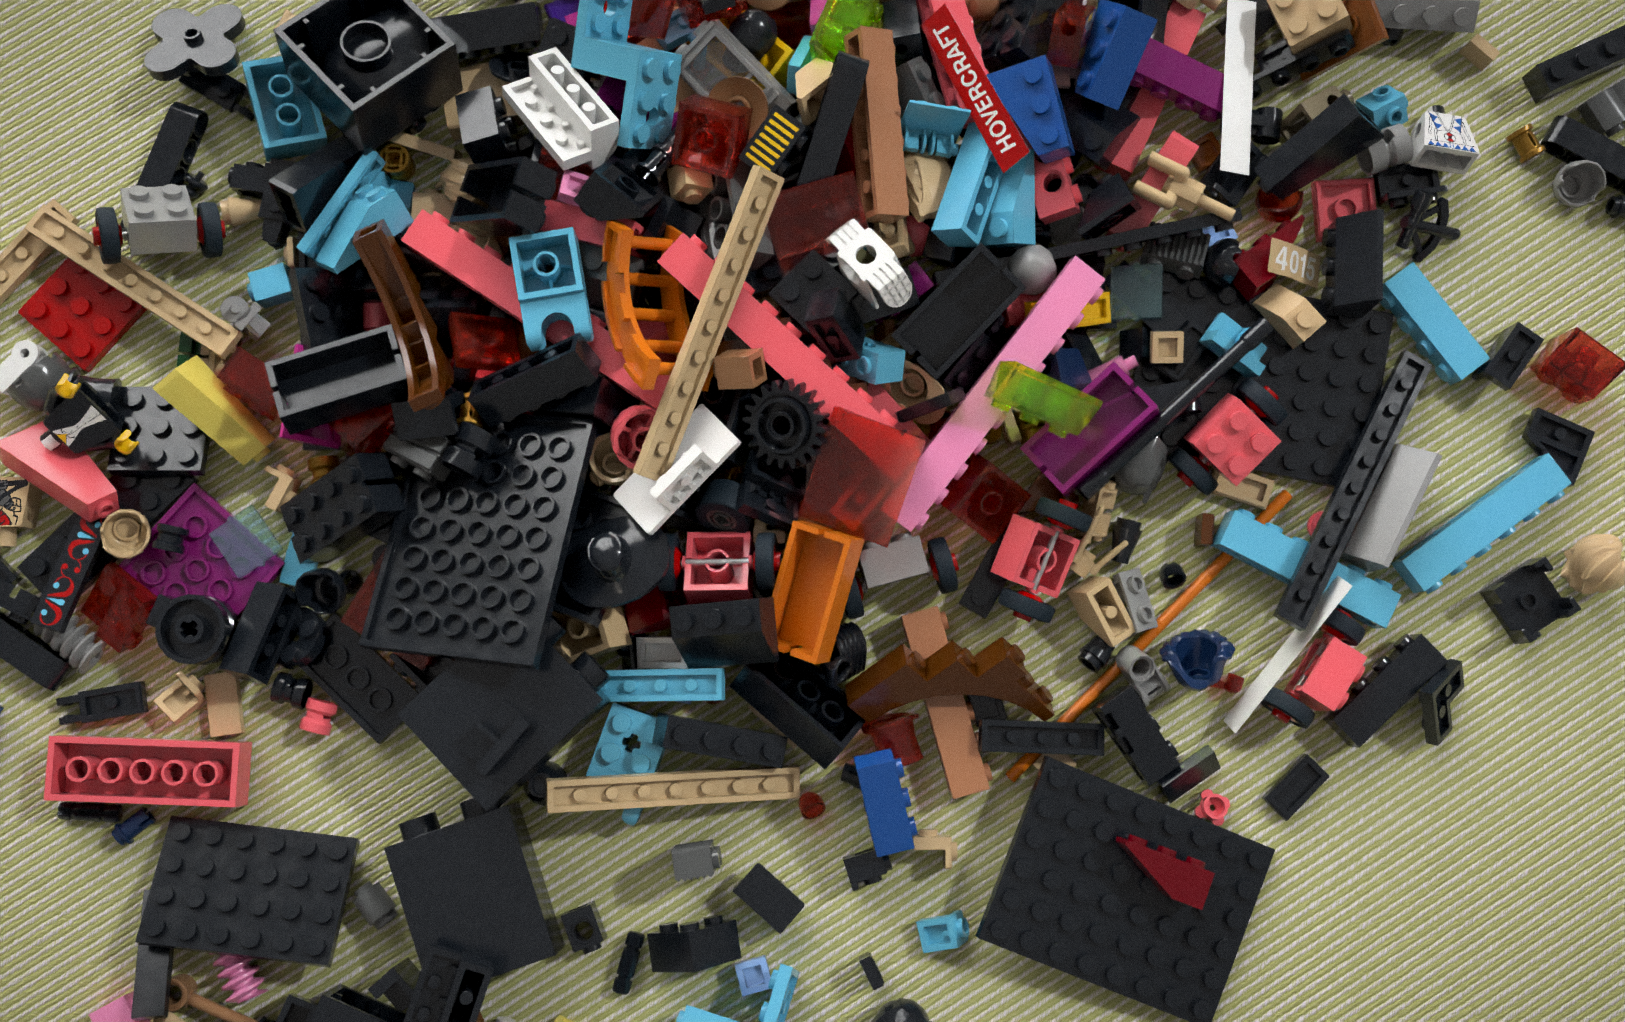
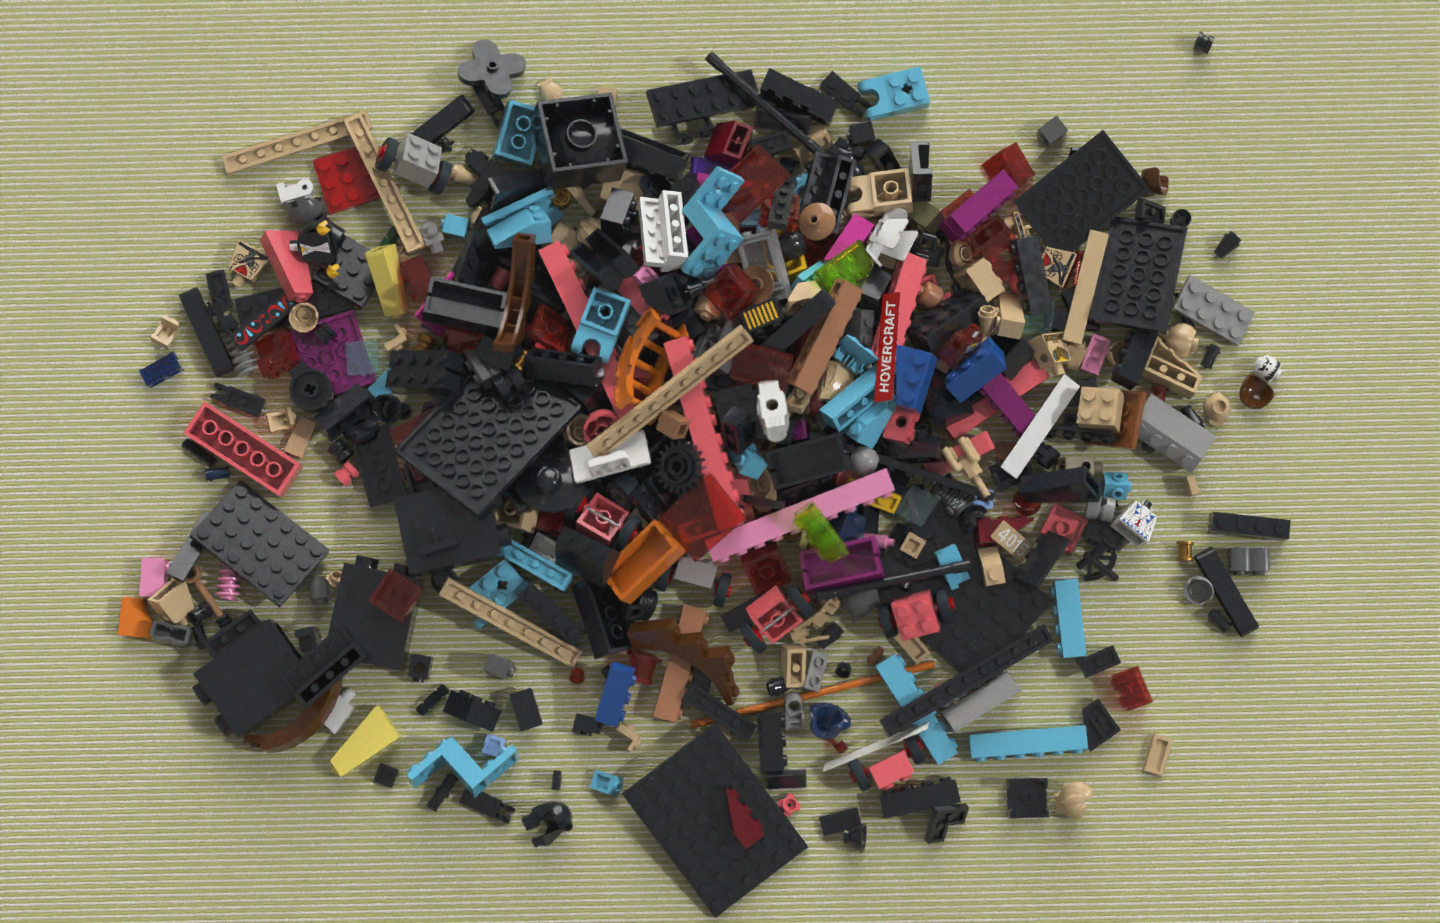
camera: 35 degrees right, 0 degrees up
(384, 876) = (334, 579): none -> tan plate
(486, 852) = (396, 595): none -> clear red brick
(1333, 797) = (856, 837): none -> black piece

